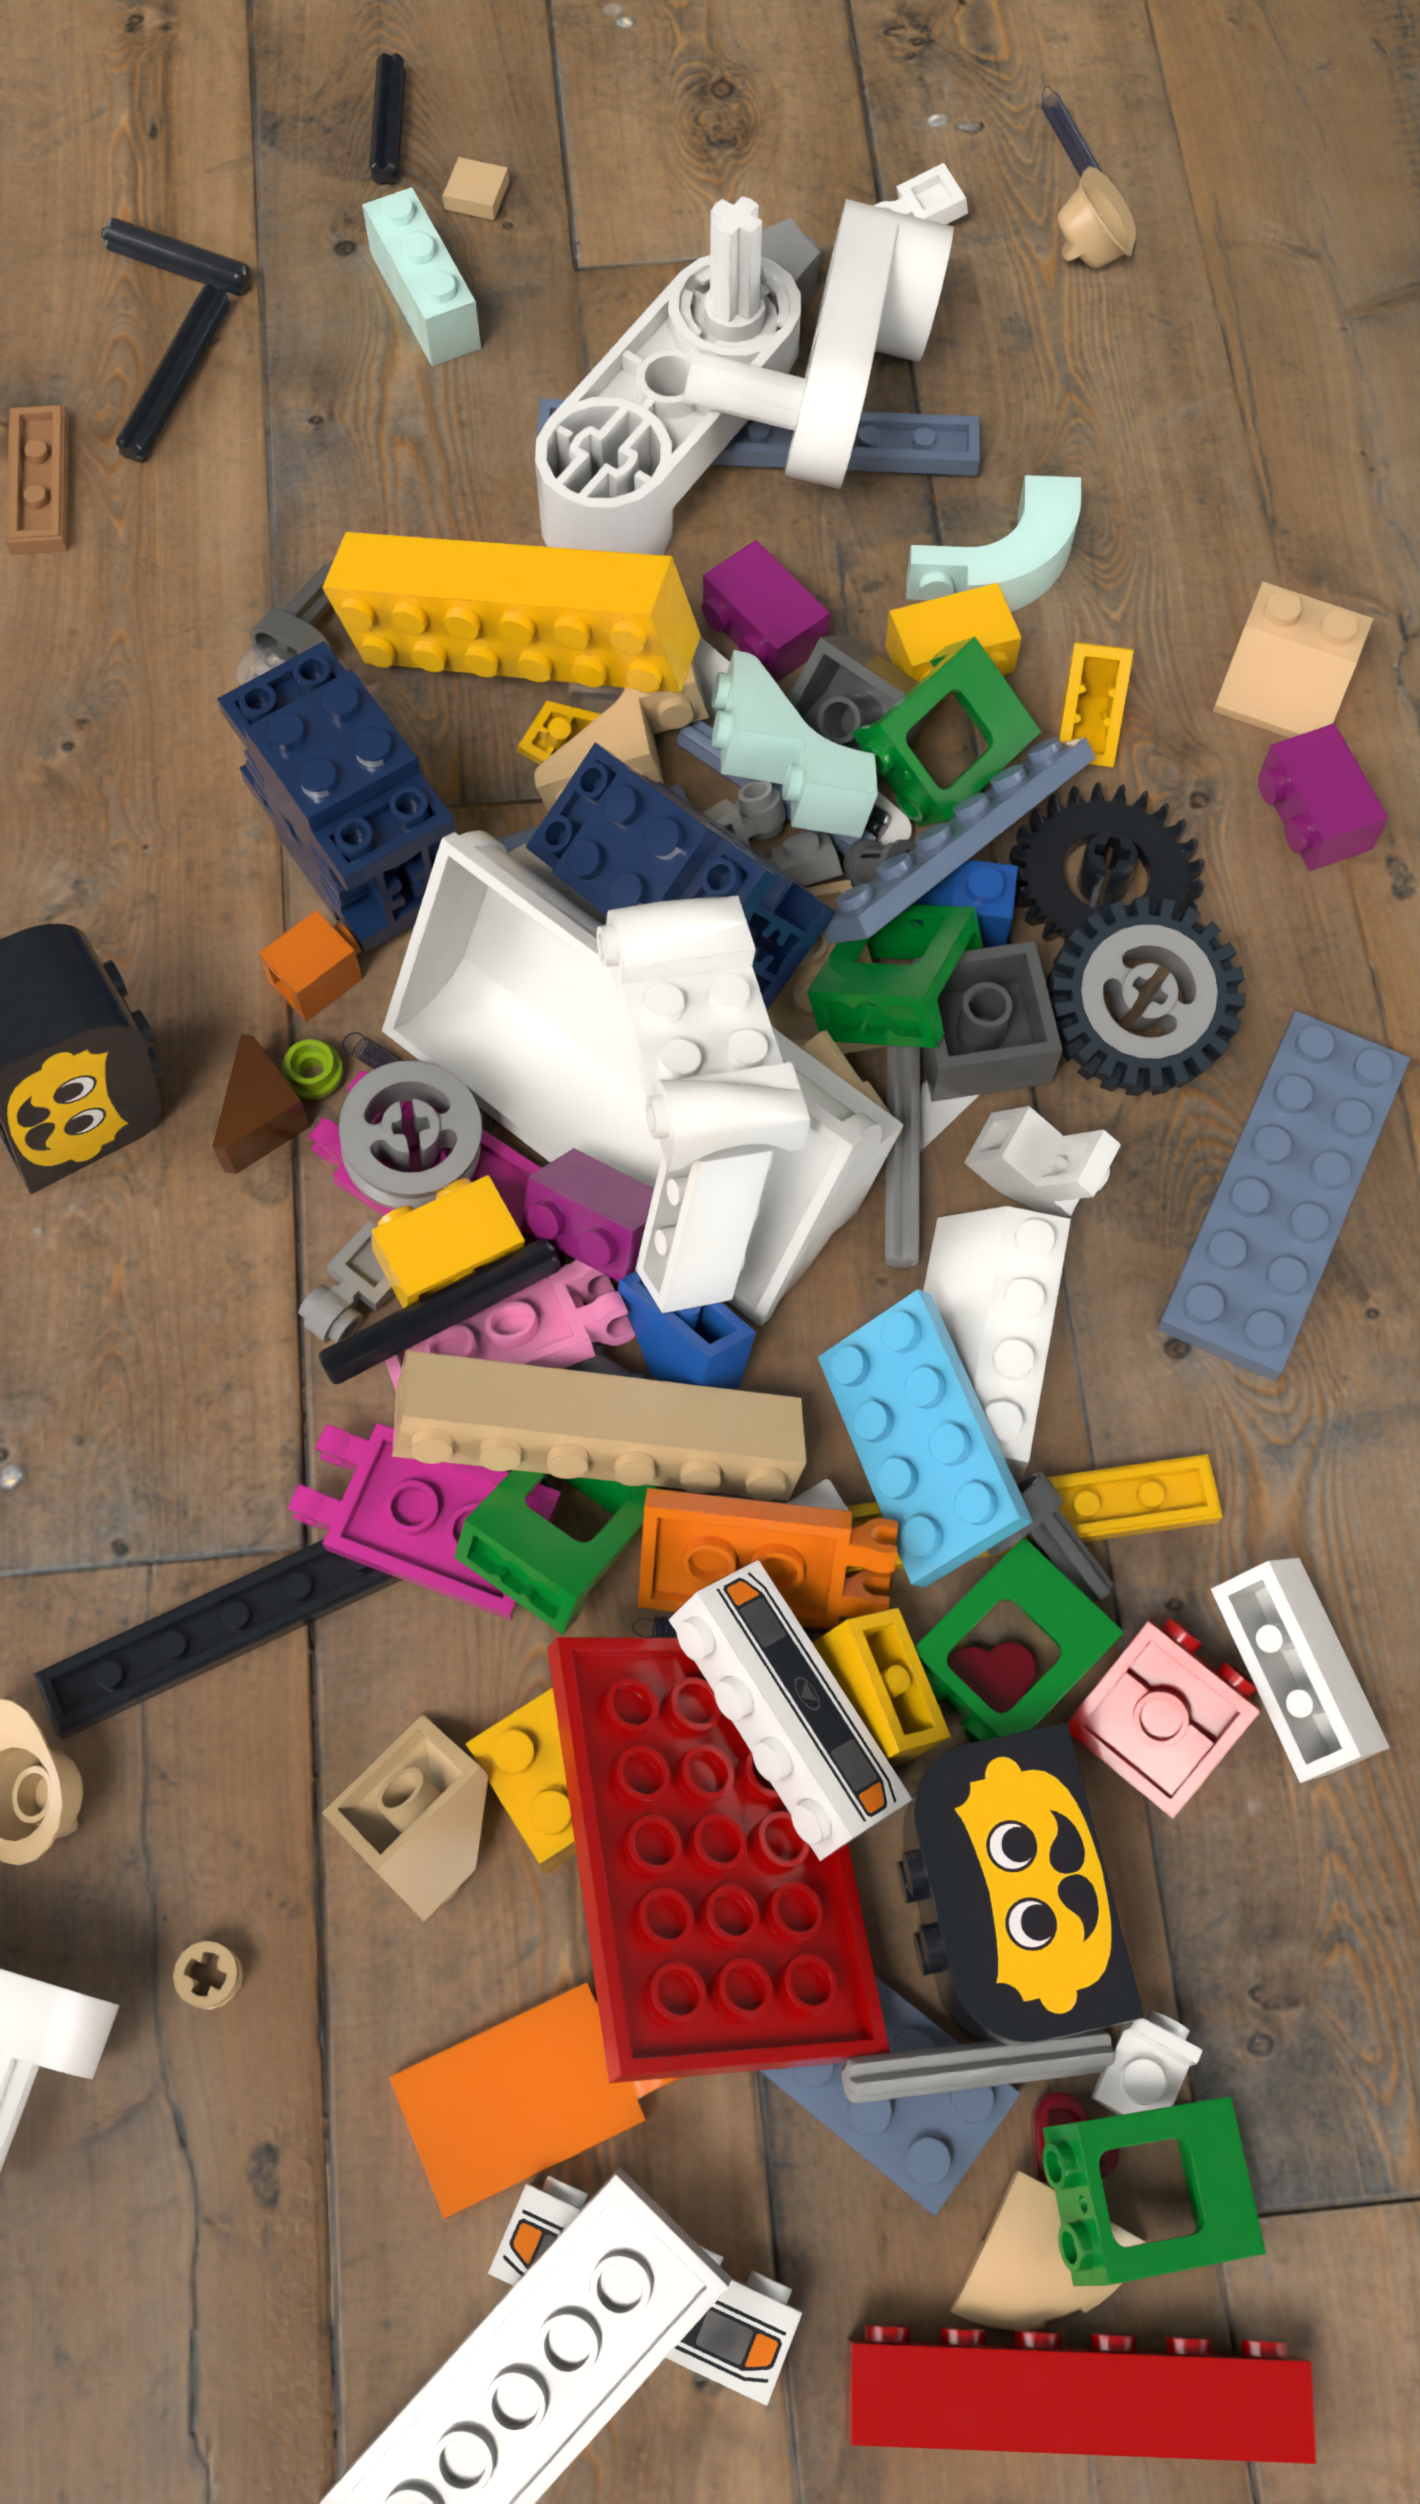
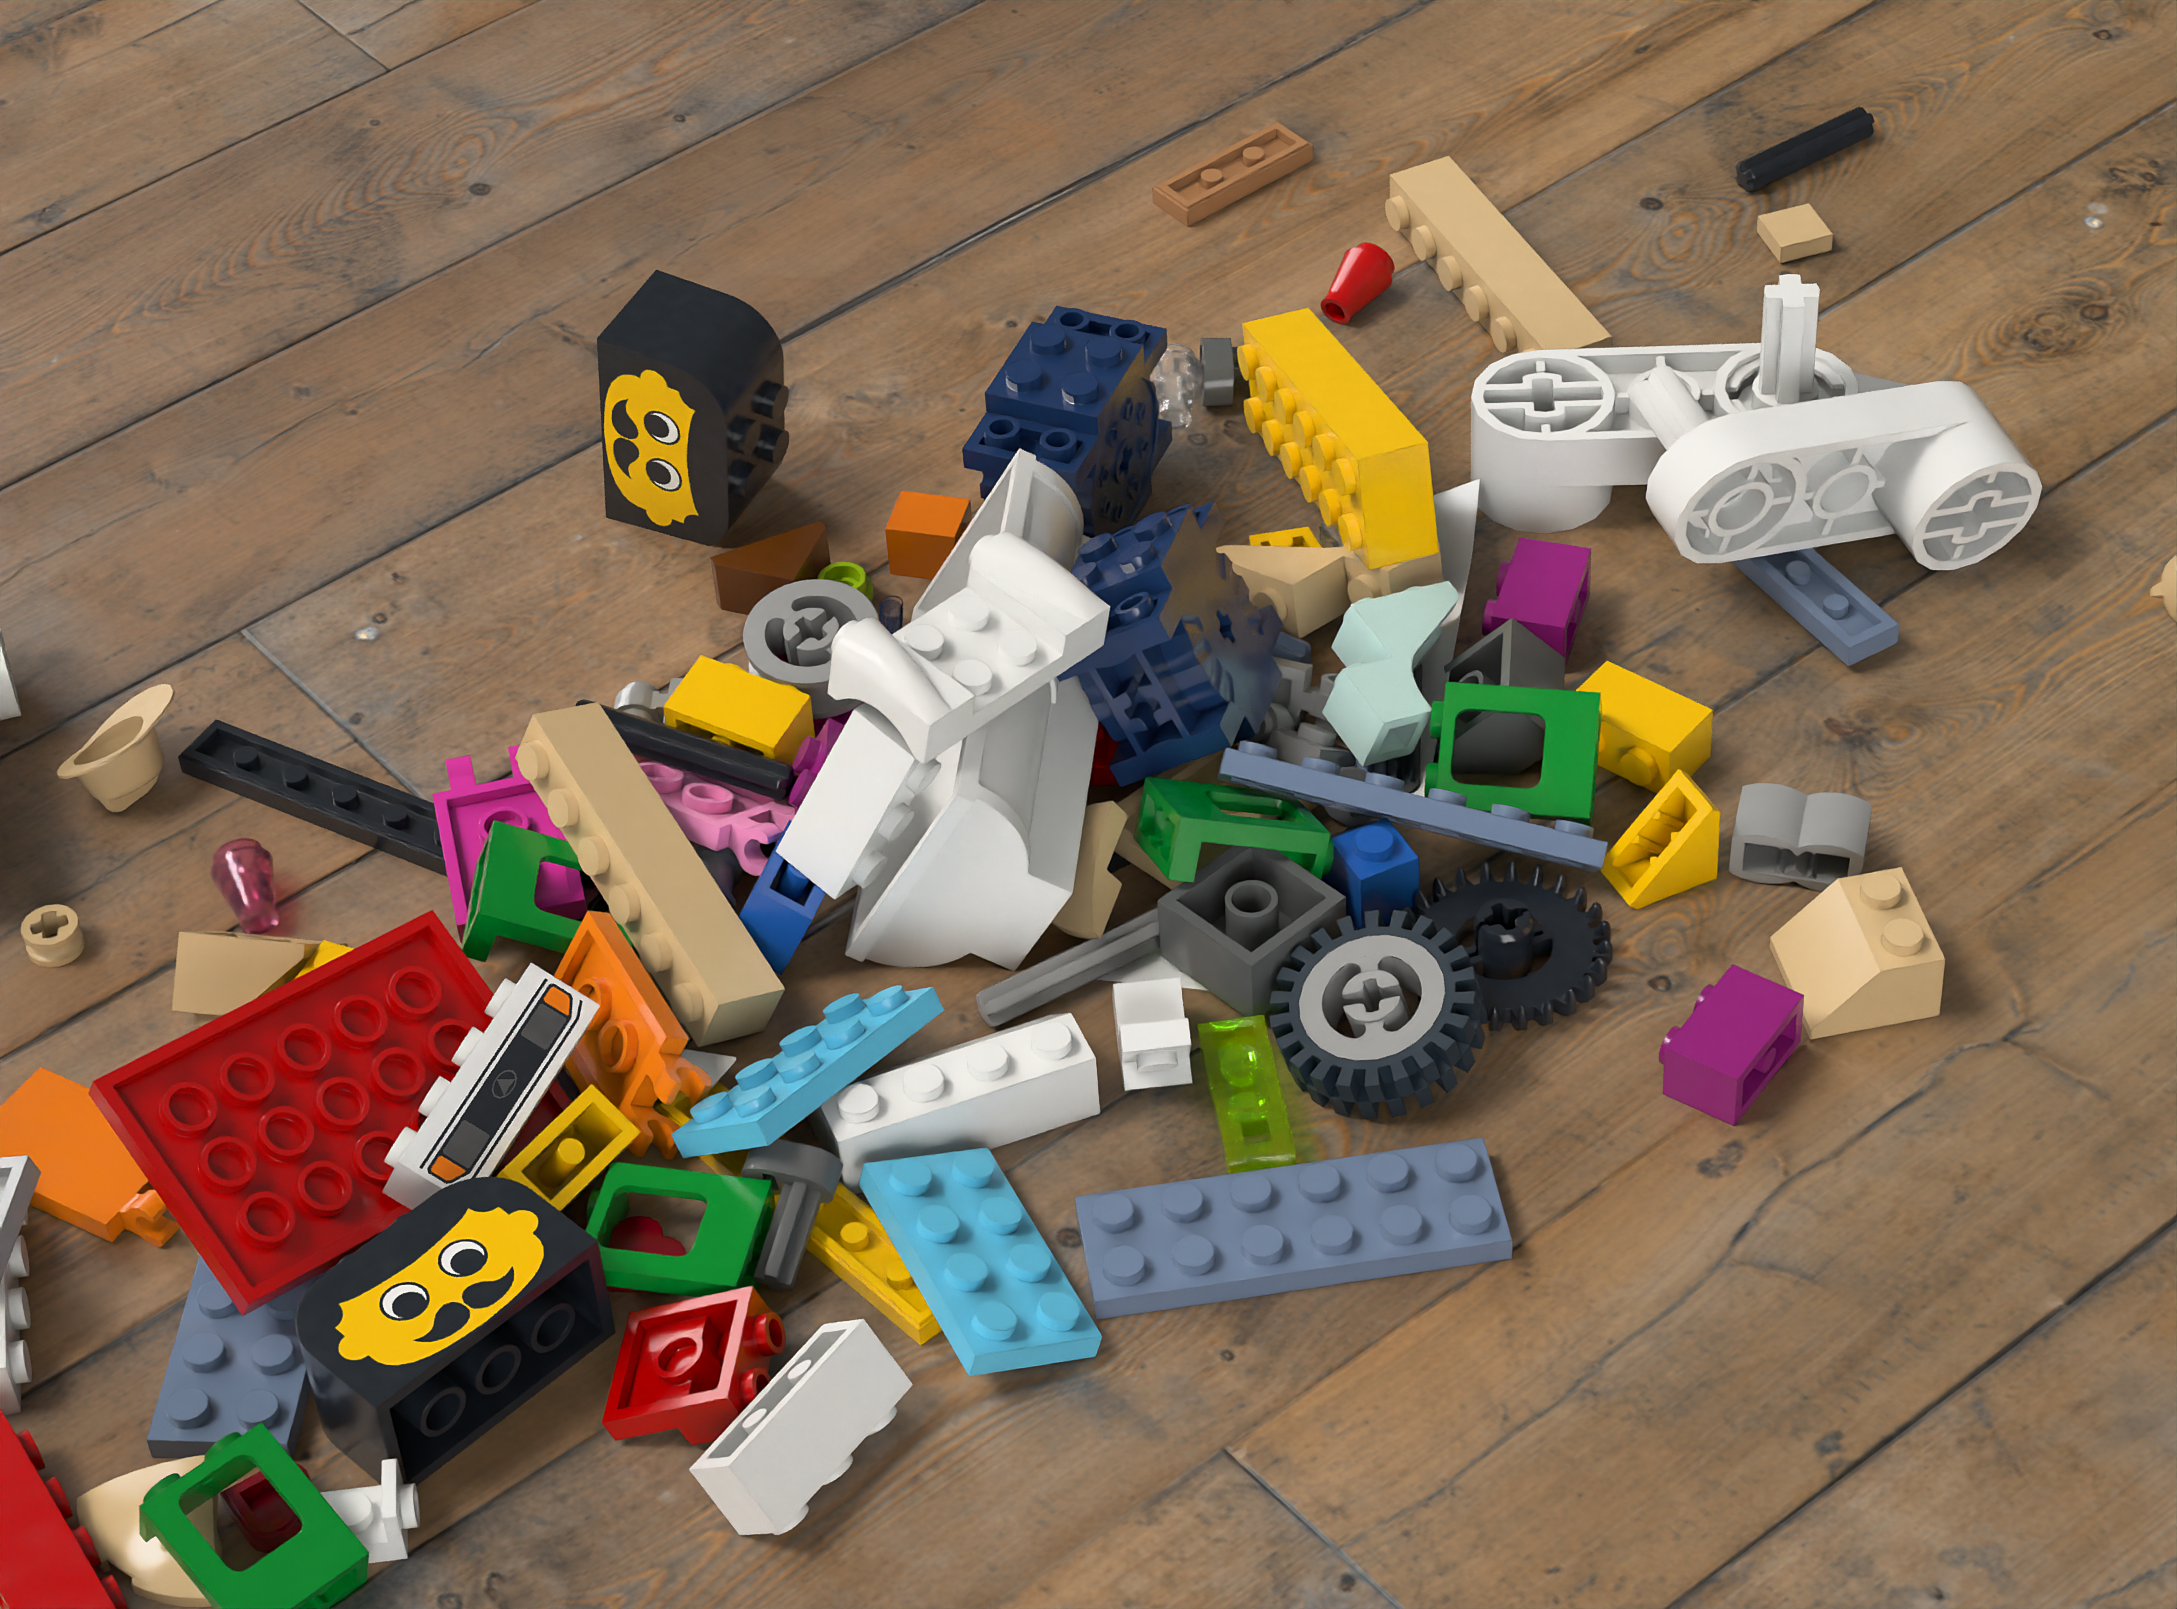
camera: 60 degrees right, 25 degrees down
(173, 373) = (1374, 187): black axle -> none
(176, 256) = (1525, 122): black axle -> none
(271, 483) = (1359, 279): none -> red cone
(291, 1764) = (246, 881): none -> clear pink cone
(358, 392) = (1487, 262): none -> tan brick
(422, 276) = (1652, 245): light aqua brick -> none
(930, 197) = (2106, 482): white plate -> none
(972, 2066) = (282, 1381): light grey axle -> none
(1021, 563) = (1783, 731): light aqua arch -> none
(1145, 1136) = (1245, 1094): none -> clear neon green plate
(1150, 612) = (1798, 836): none -> light grey brick
(1187, 1431) = (979, 1261): none -> medium azure plate

